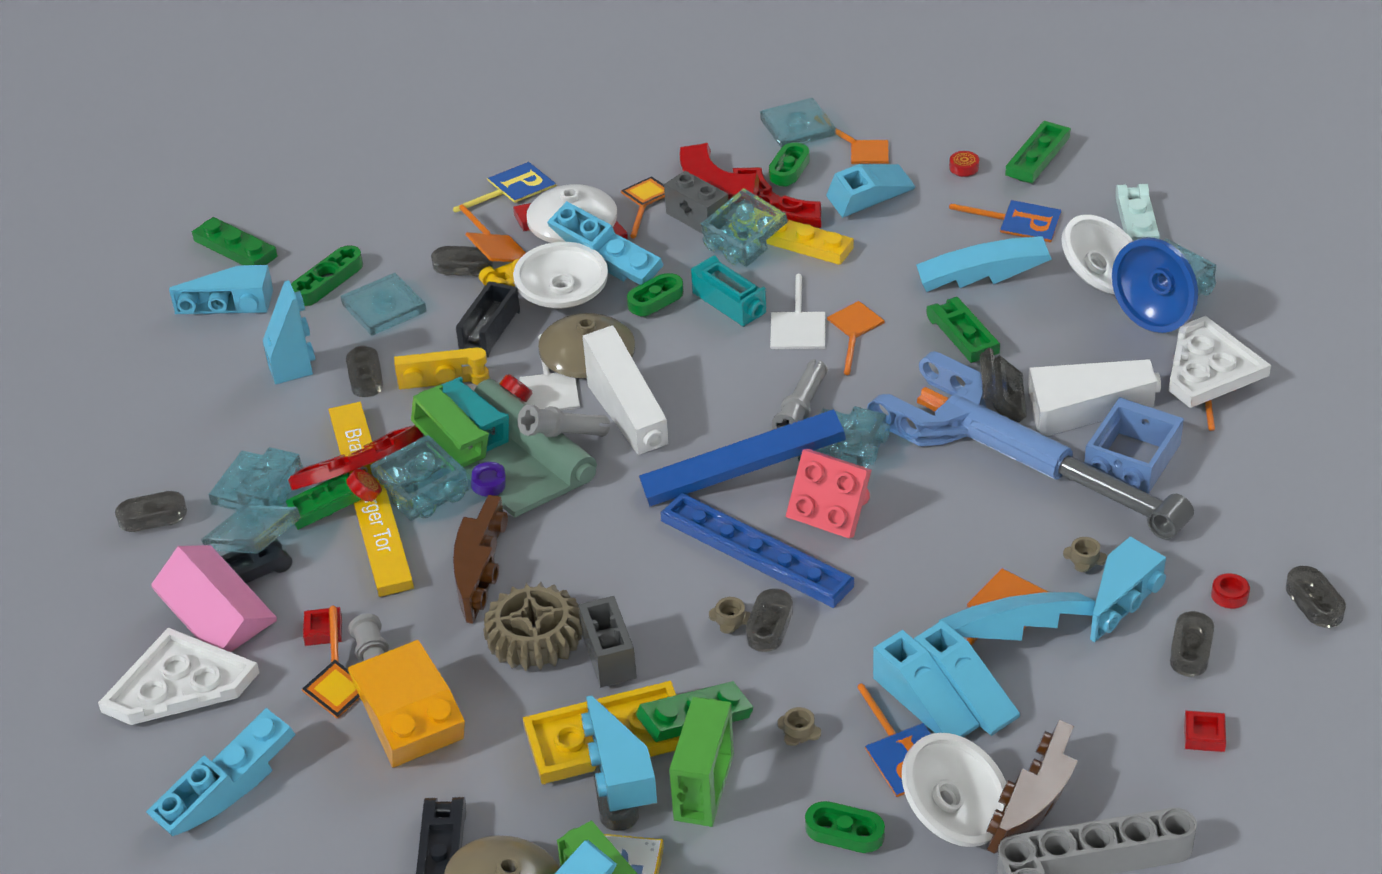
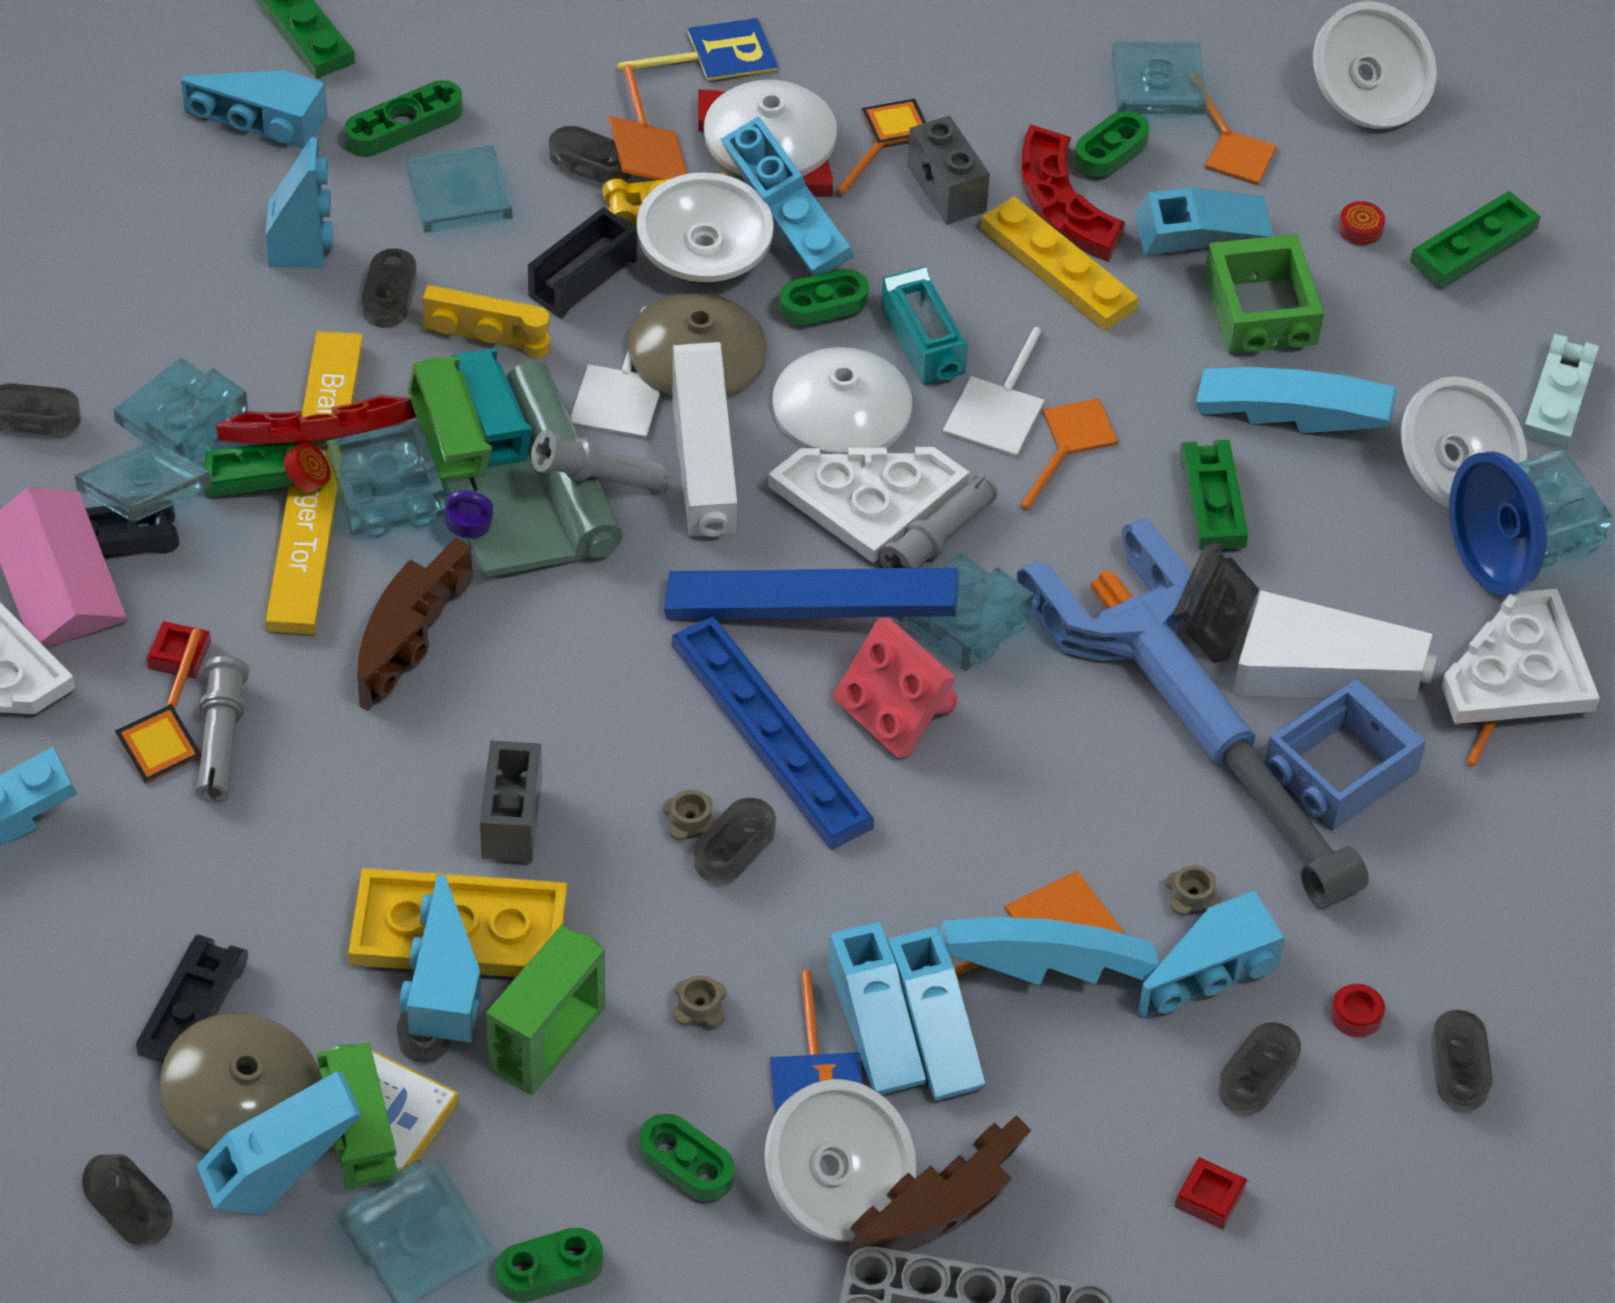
camera: 15 degrees right, 10 degrees up
(408, 703) = (227, 797): light orange slope -> none
(511, 630) = (431, 744): dark tan gear -> none
(516, 387) = (569, 384): red tile -> none
(667, 716) = (620, 932): green plate -> none
(697, 350) = (842, 401): none -> white dish
(698, 162) = (990, 135): red tile -> none
(742, 227) = (988, 232): clear light blue plate -> none
(743, 393) = (867, 493): none -> white plate
(907, 201) = (1262, 261): none -> bright green window
(927, 78) = (1390, 54): none -> white dish
(1022, 219) = (1400, 344): blue piece -> none

